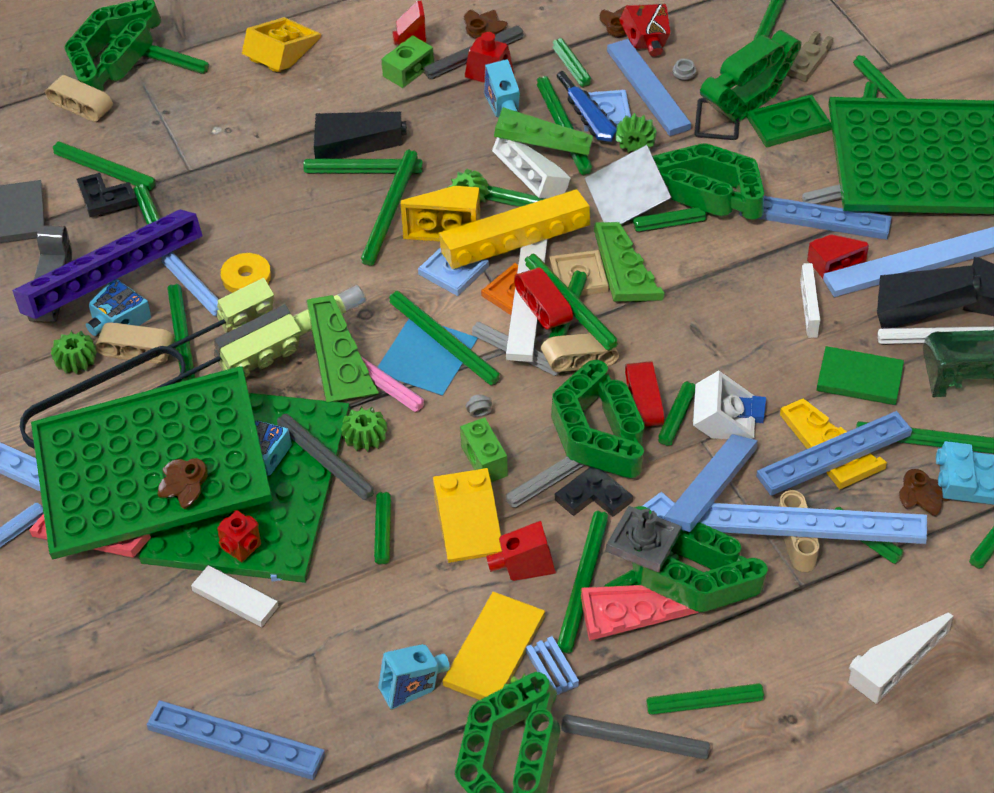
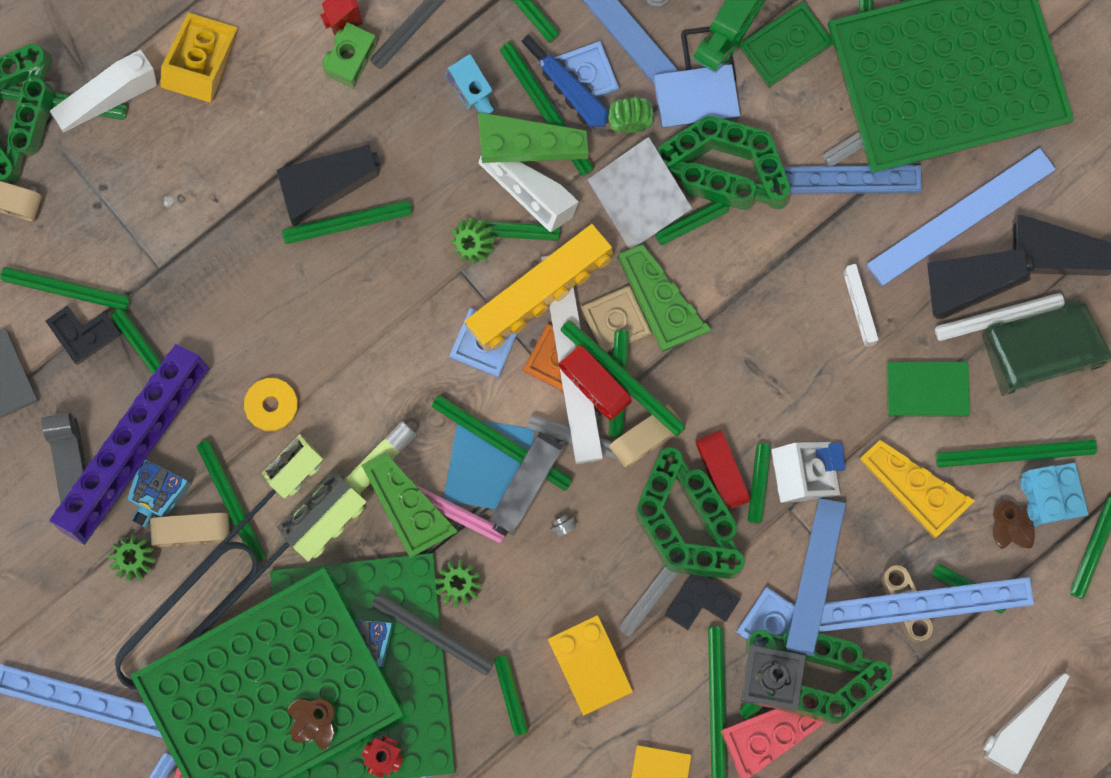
camera: 15 degrees left, 30 degrees up
(191, 282) = (222, 433): light blue axle -> none
(207, 42) = (107, 90): none -> white slope
(389, 208) = (395, 280): green axle -> none
(439, 211) = (465, 285): yellow slope -> none
(456, 354) = (526, 484): none -> slope
(483, 52) = (442, 40): red torso -> none
(484, 449) = (584, 584): bright green brick -> none
(523, 553) = (666, 697): red torso -> none
(688, 129) = (694, 94): none -> light blue tile
(833, 453) = (924, 505): medium blue tile -> none
(836, 253) = (873, 236): red slope -> none

